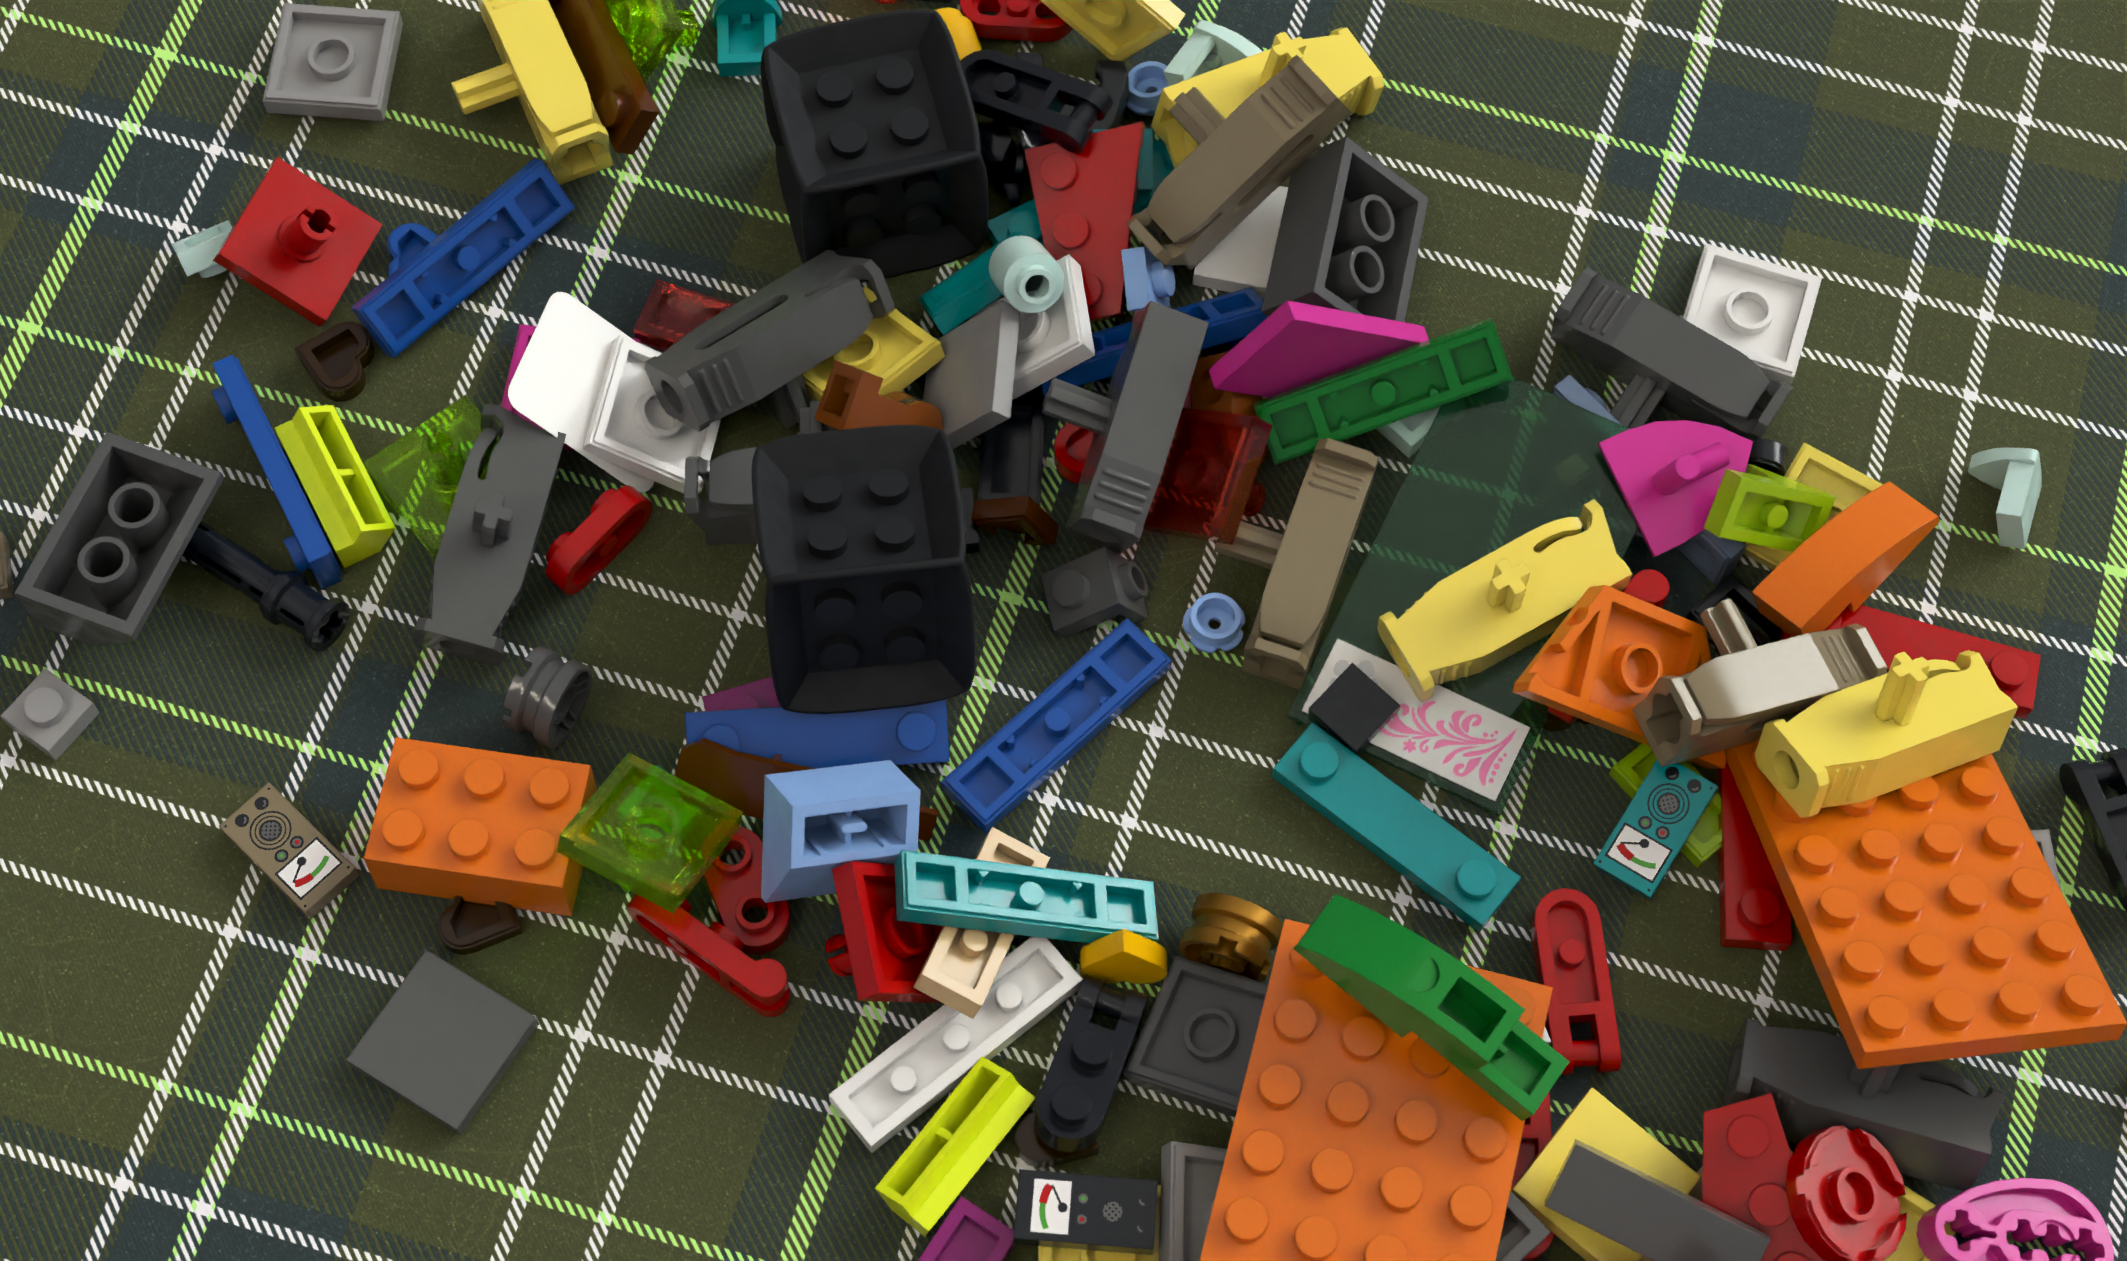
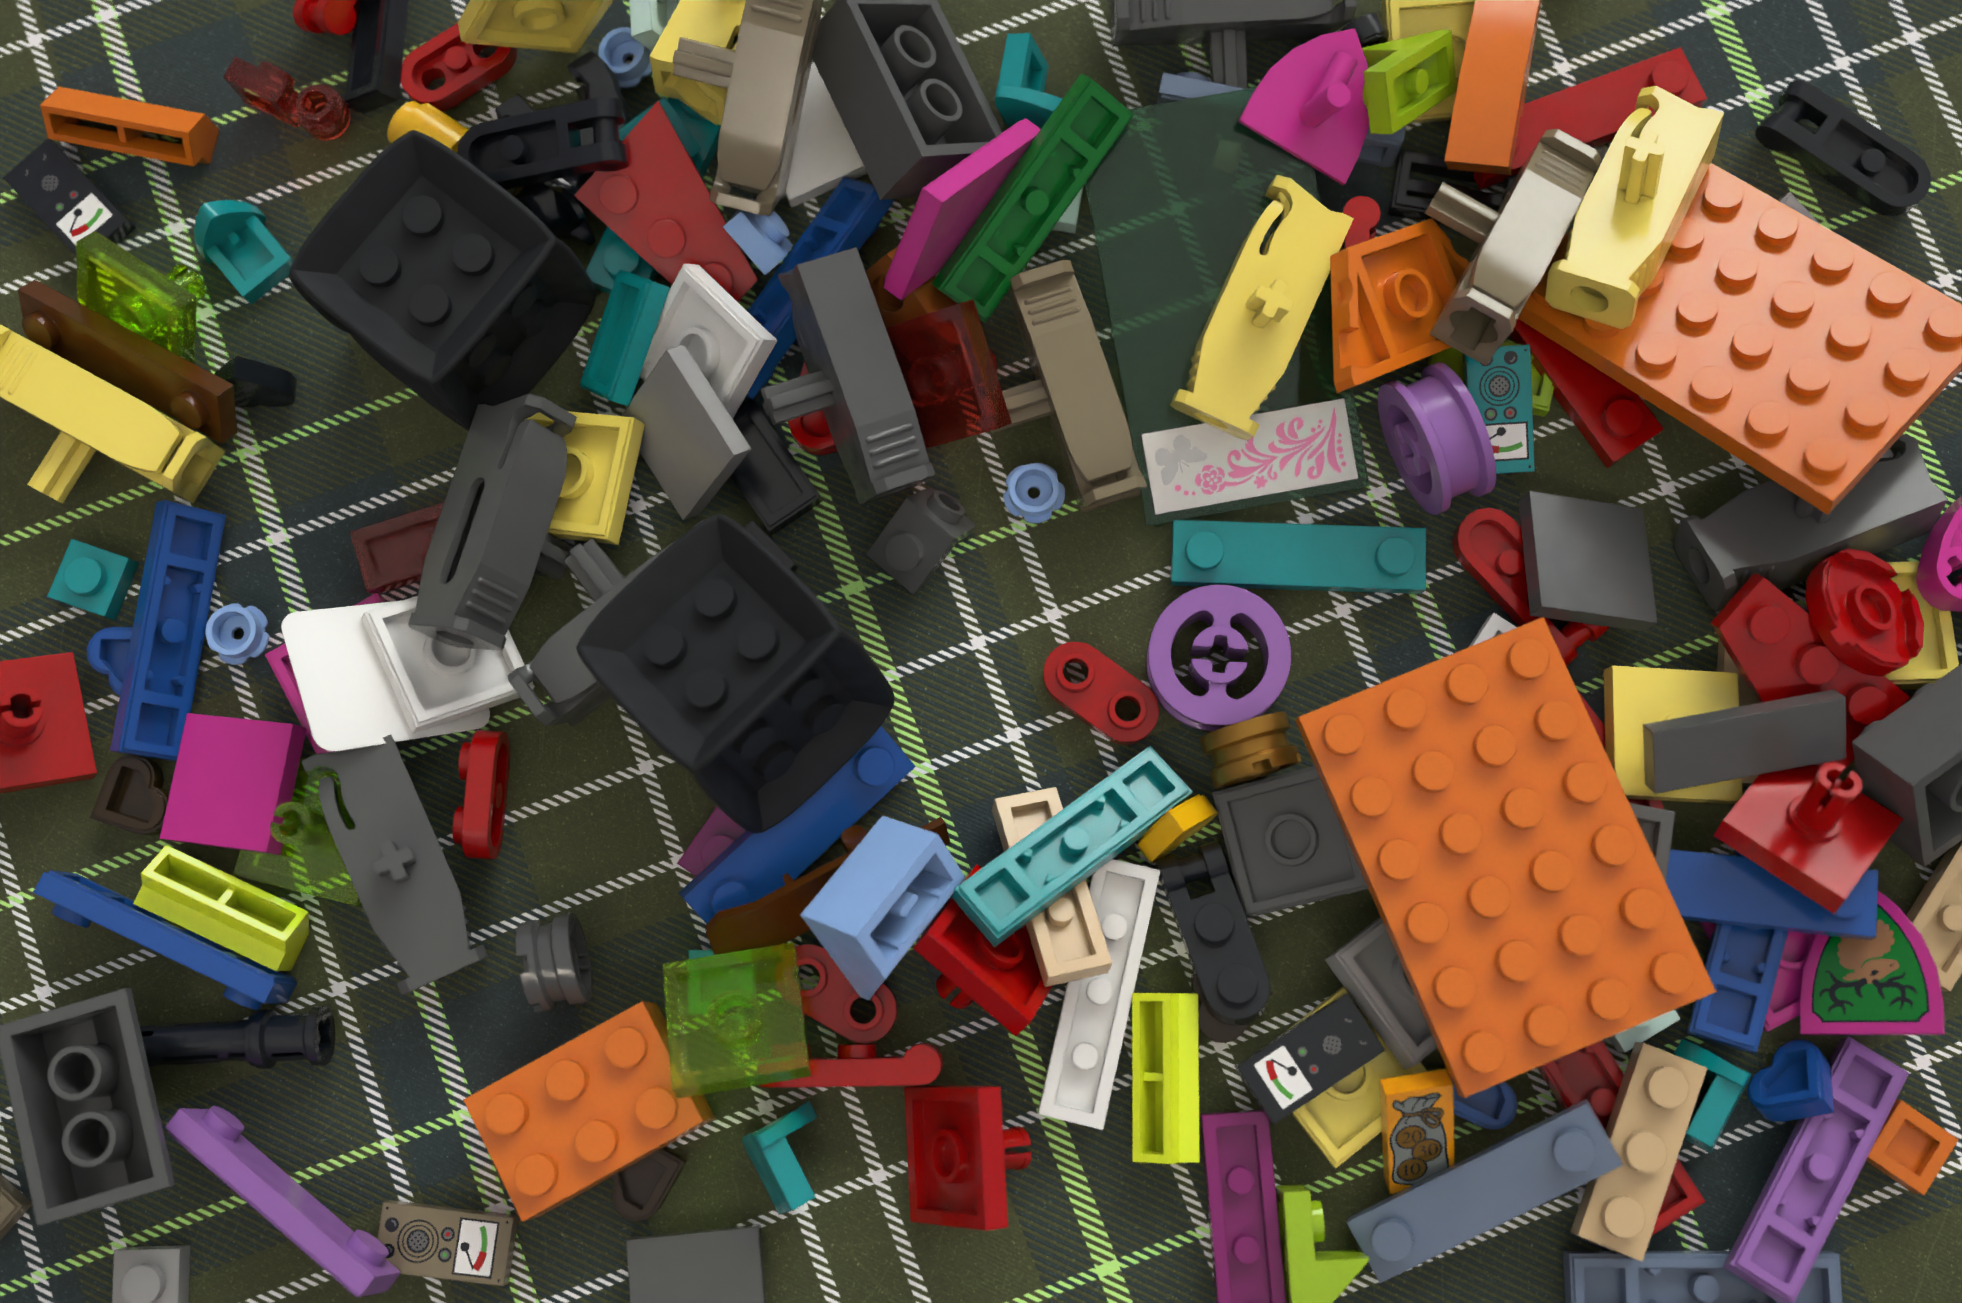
camera: 30 degrees left, 15 degrees up
(214, 795) = (348, 1256): none -> medium lavender plate
(416, 389) = (232, 781): none -> dark pink tile
(440, 186) = (93, 579): none -> teal plate
(509, 282) = (221, 631): none -> light blue plate
(590, 975) = (777, 1162): none -> teal tile
(677, 131) = (258, 383): none -> black tile
(741, 1072) = (960, 1155): none -> red tile
(854, 402) = (623, 529): dark orange leg -> none
(1018, 515) = (815, 514): reddish brown tile -> none
(1026, 274) = (666, 311): light aqua brick -> none
(1055, 725) = (976, 672): blue plate -> none
(1145, 812) = (1098, 694): none -> red plate
(1275, 817) = (1219, 608): none -> medium lavender wheel
(1354, 709) = (1199, 485): black tile -> none
(1436, 997) = (1478, 709): green slope -> none
(1452, 303) = (1023, 83): none -> teal tile
(1578, 801) = (1437, 438): none -> medium lavender wheel
(1637, 995) = (1587, 562): none -> dark grey tile

